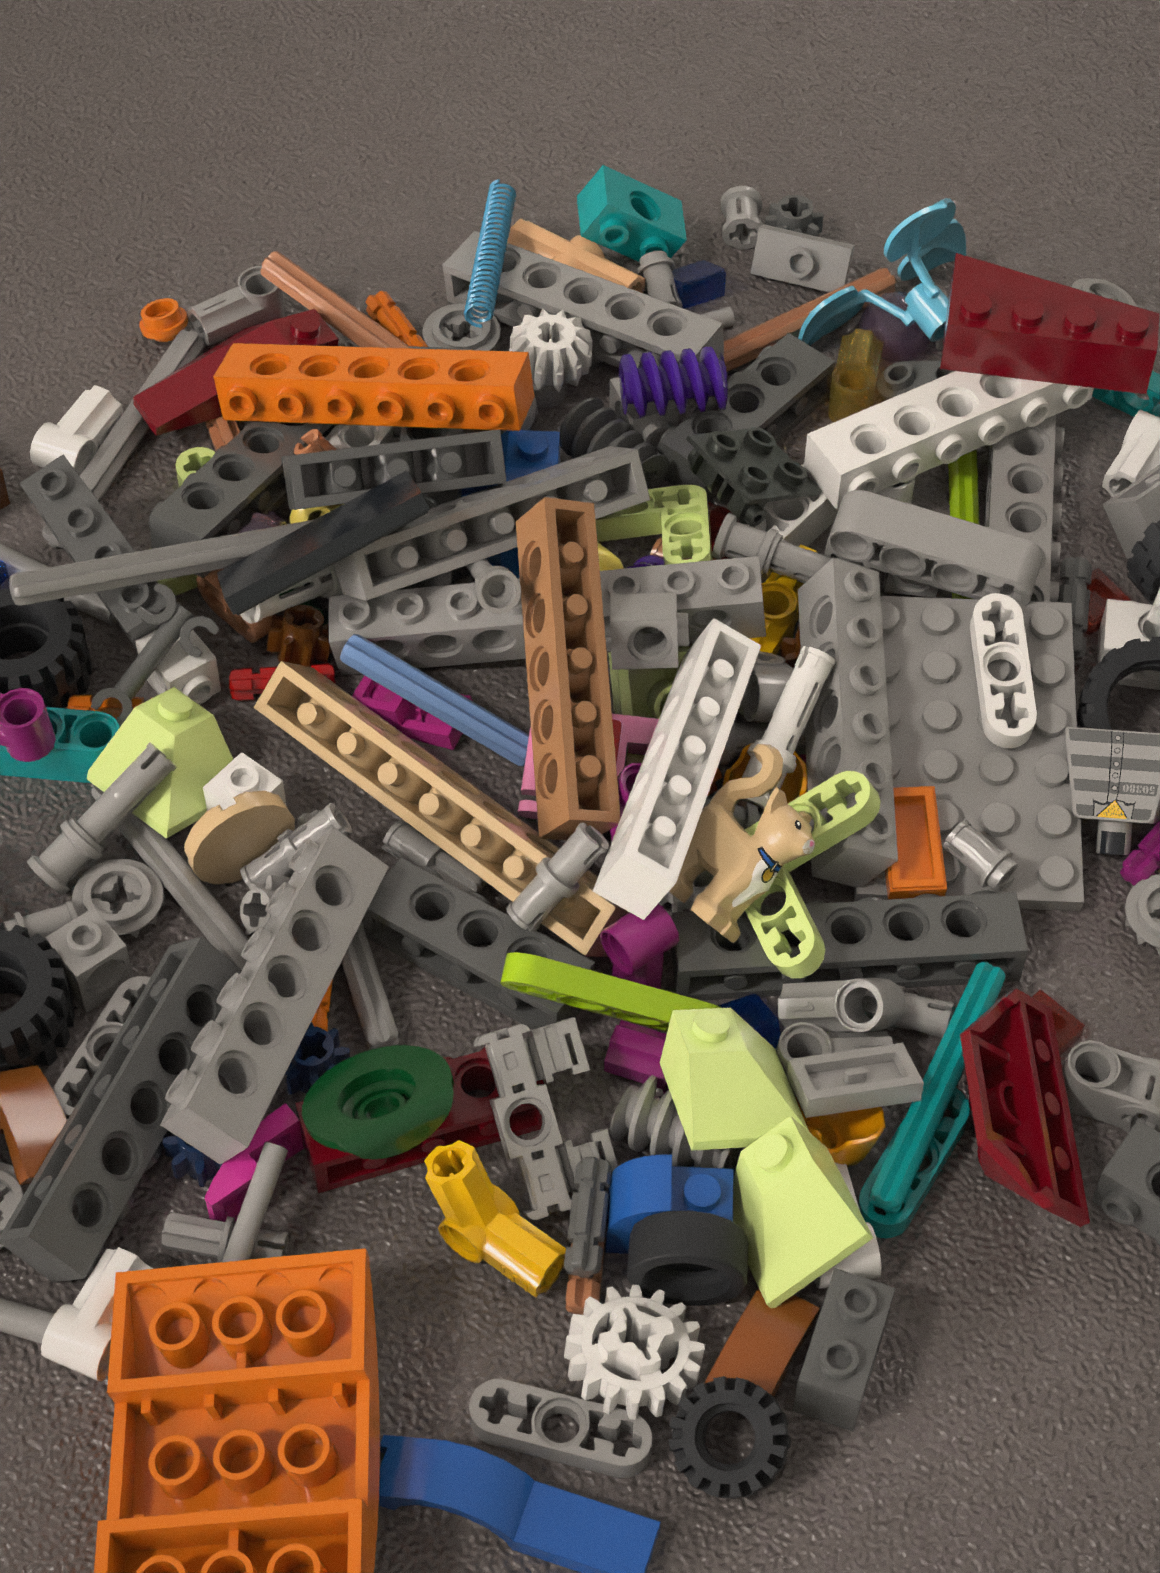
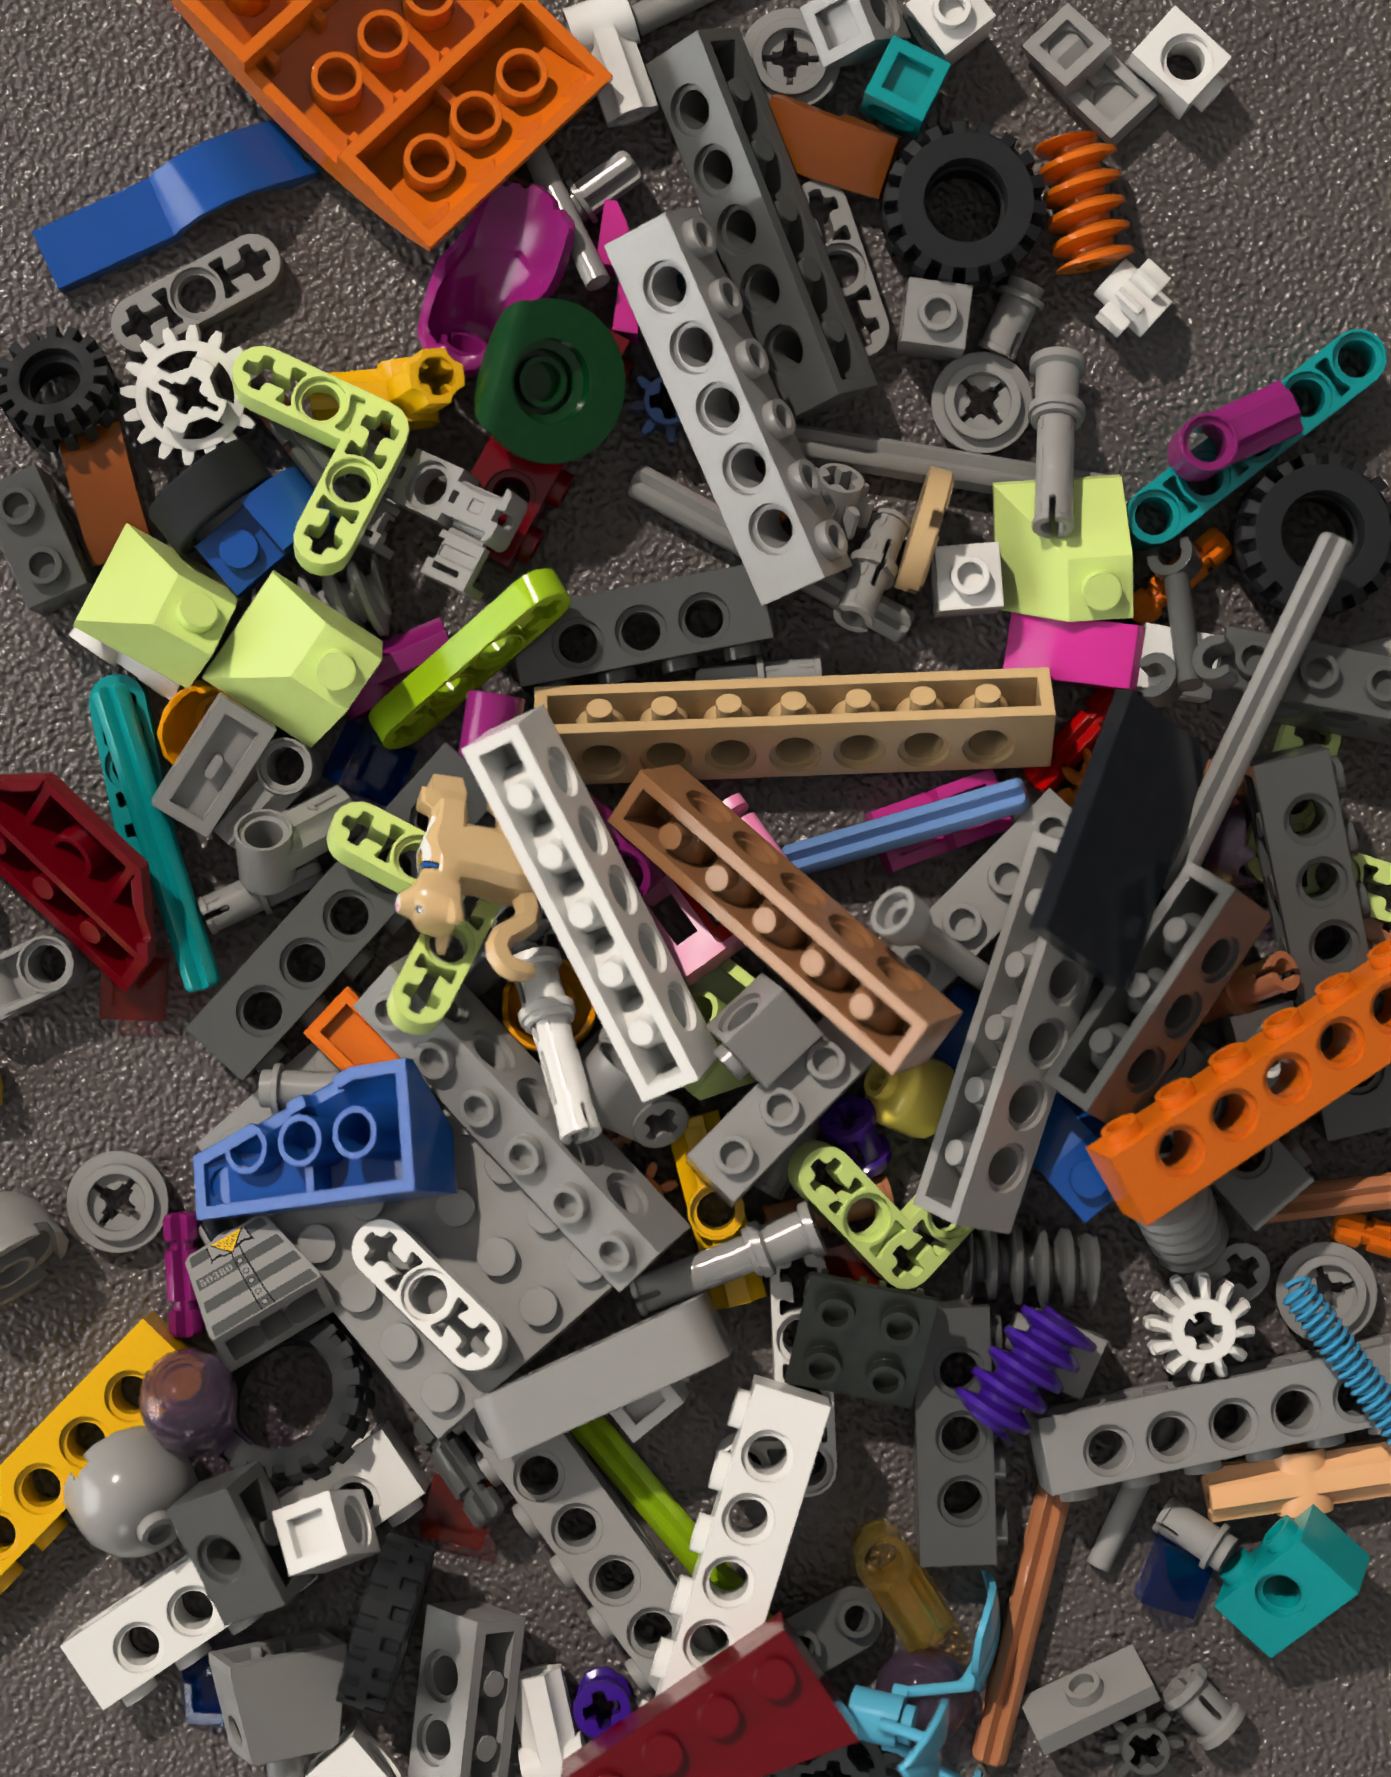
camera: 140 degrees right, 35 degrees up
(226, 696) = (1077, 652): none -> dark pink slope
(344, 1208) = (505, 255): none -> magenta hair
(550, 1196) = (342, 433): none -> yellowish green beam
(557, 877) = (600, 710): light grey pin -> none
(988, 785) = (348, 1144): none -> blue wedge
(1089, 442) = (616, 1689): none -> dark purple bush

